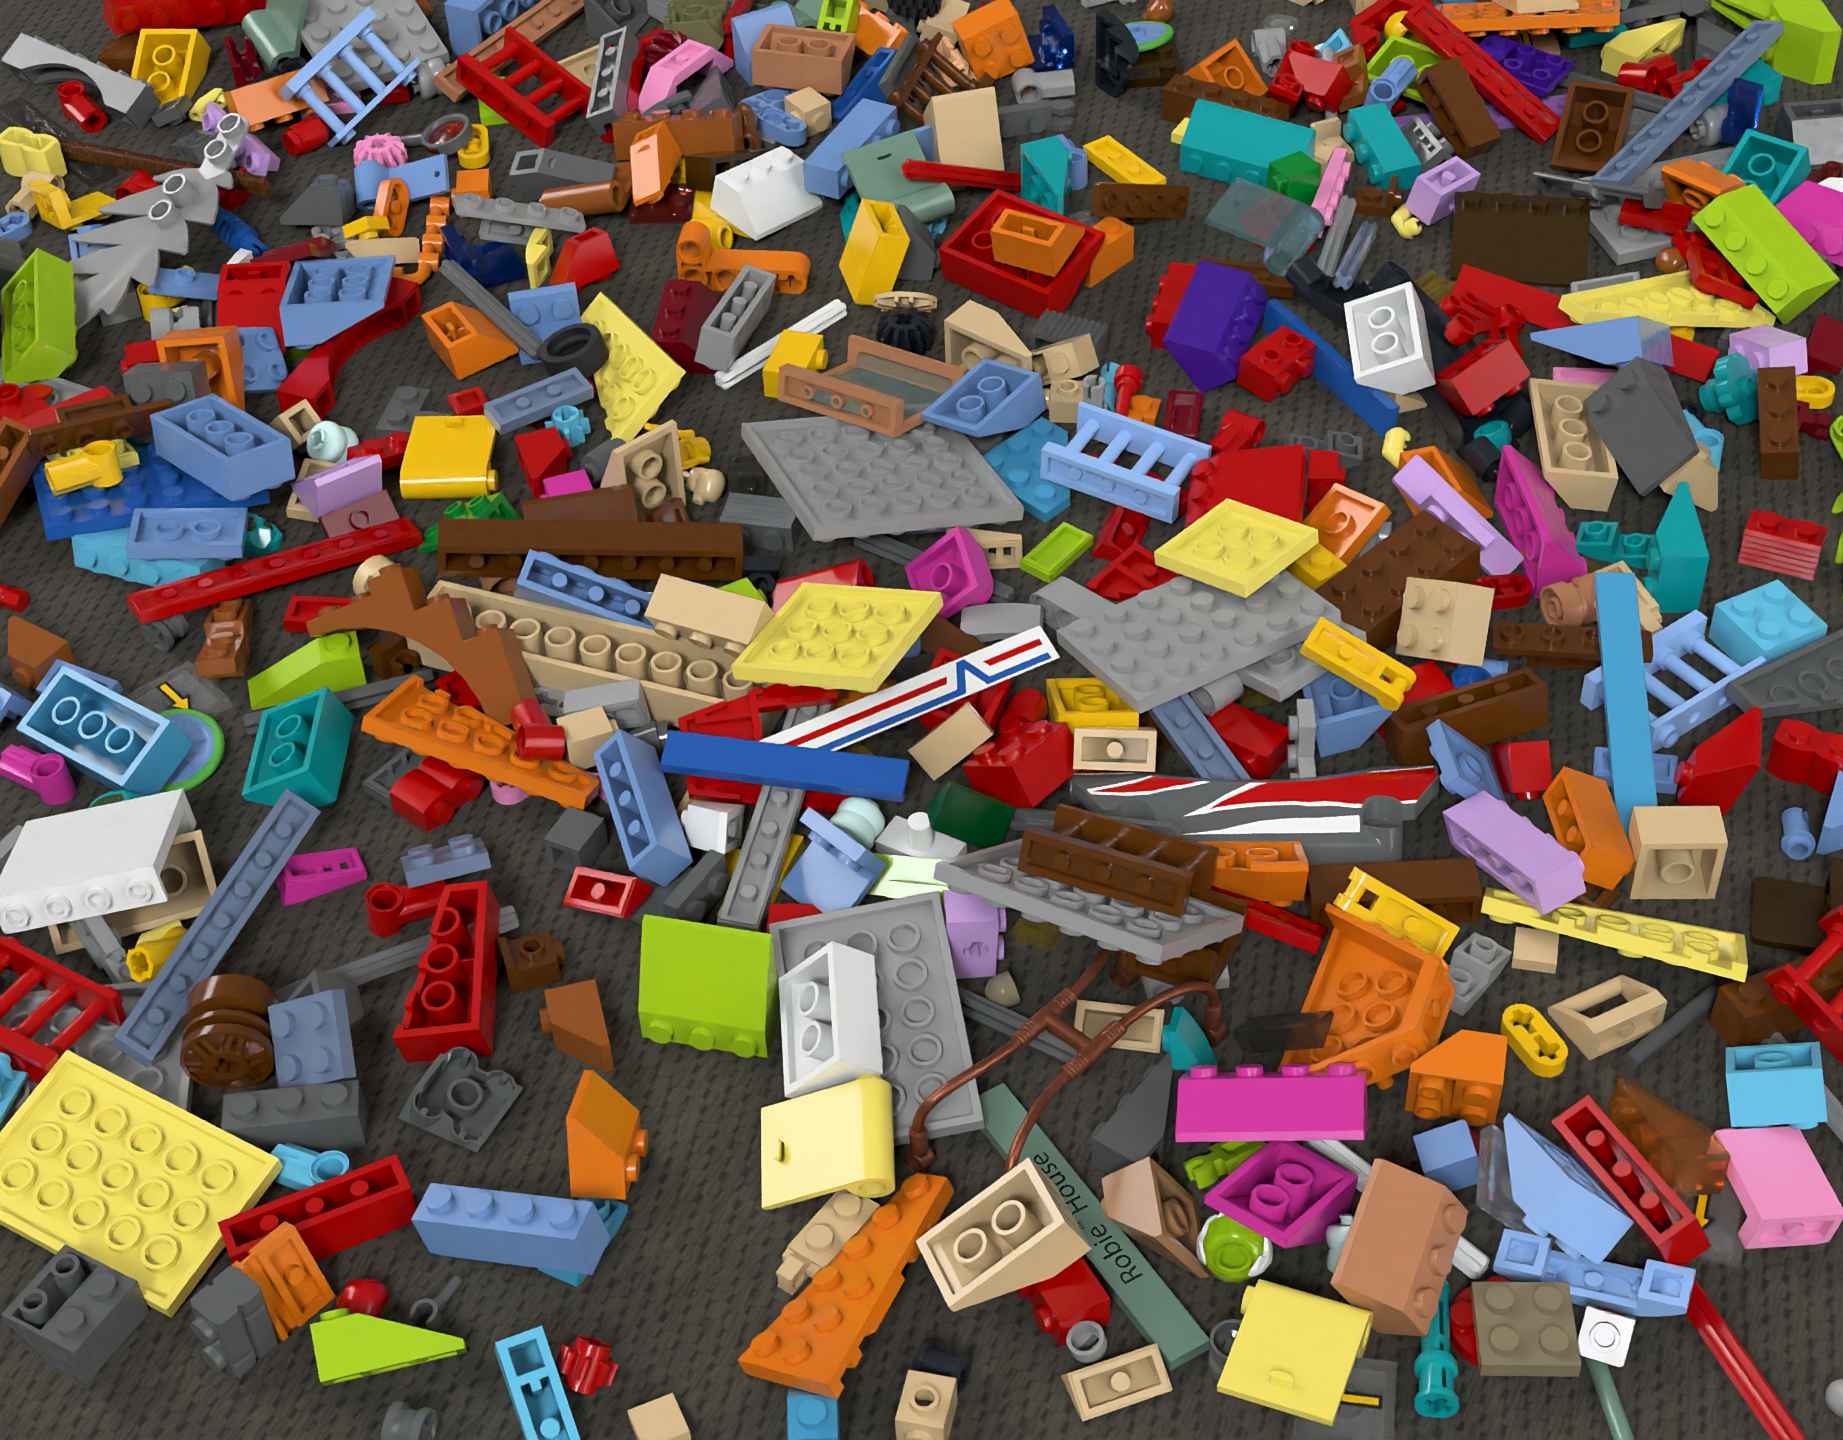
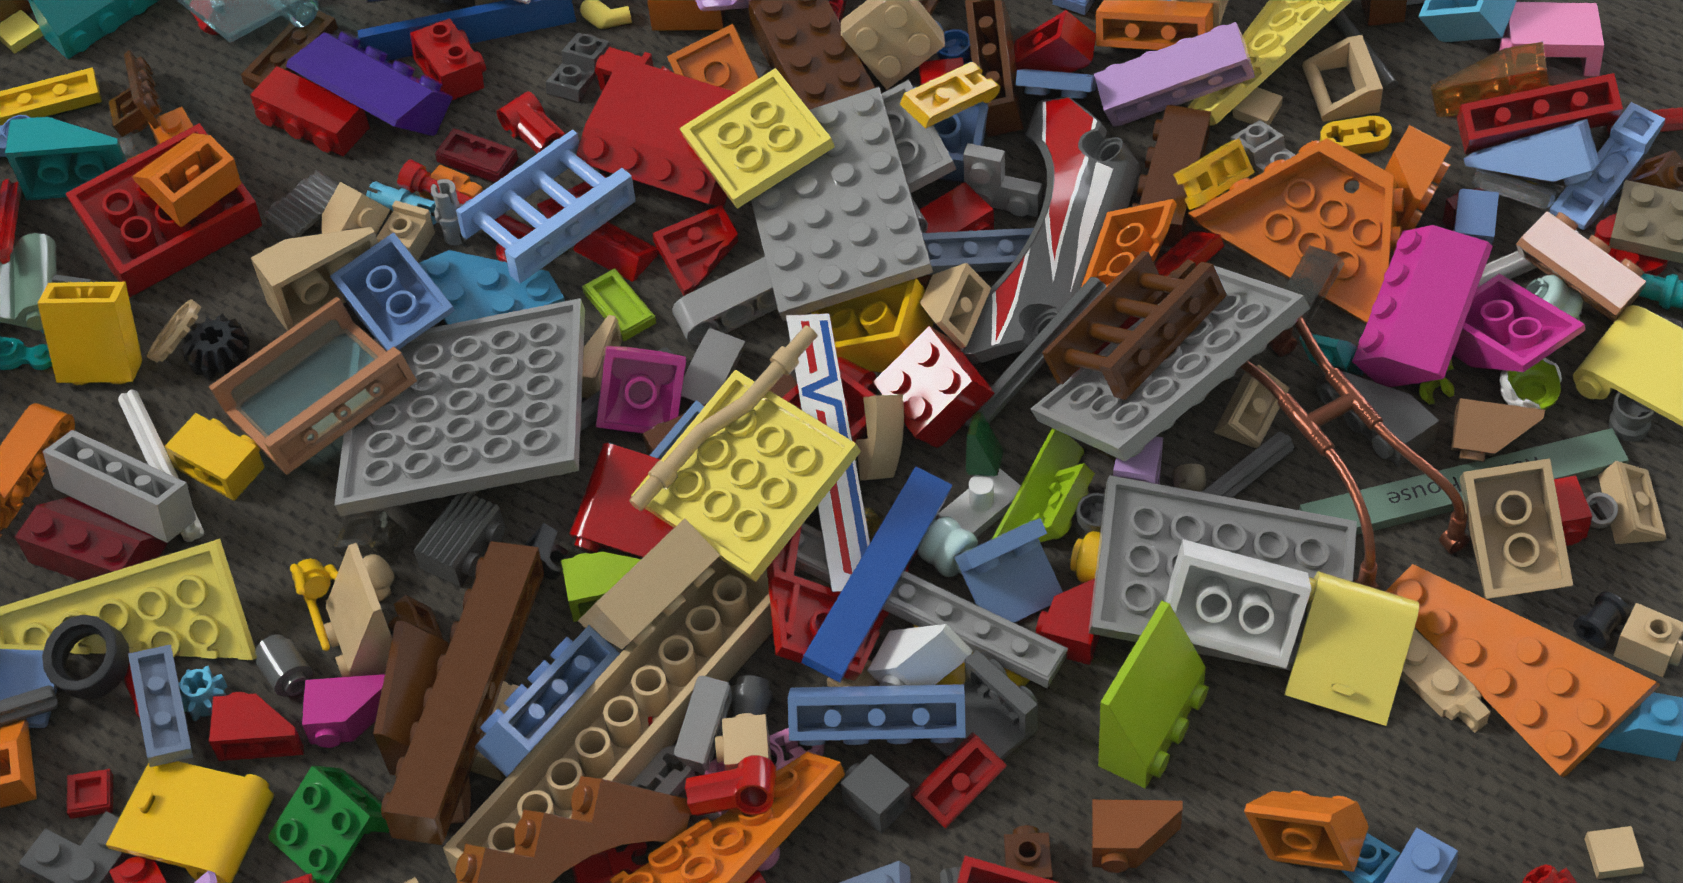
camera: 70 degrees left, 10 degrees up
(946, 610) = (665, 472): none -> tan bar

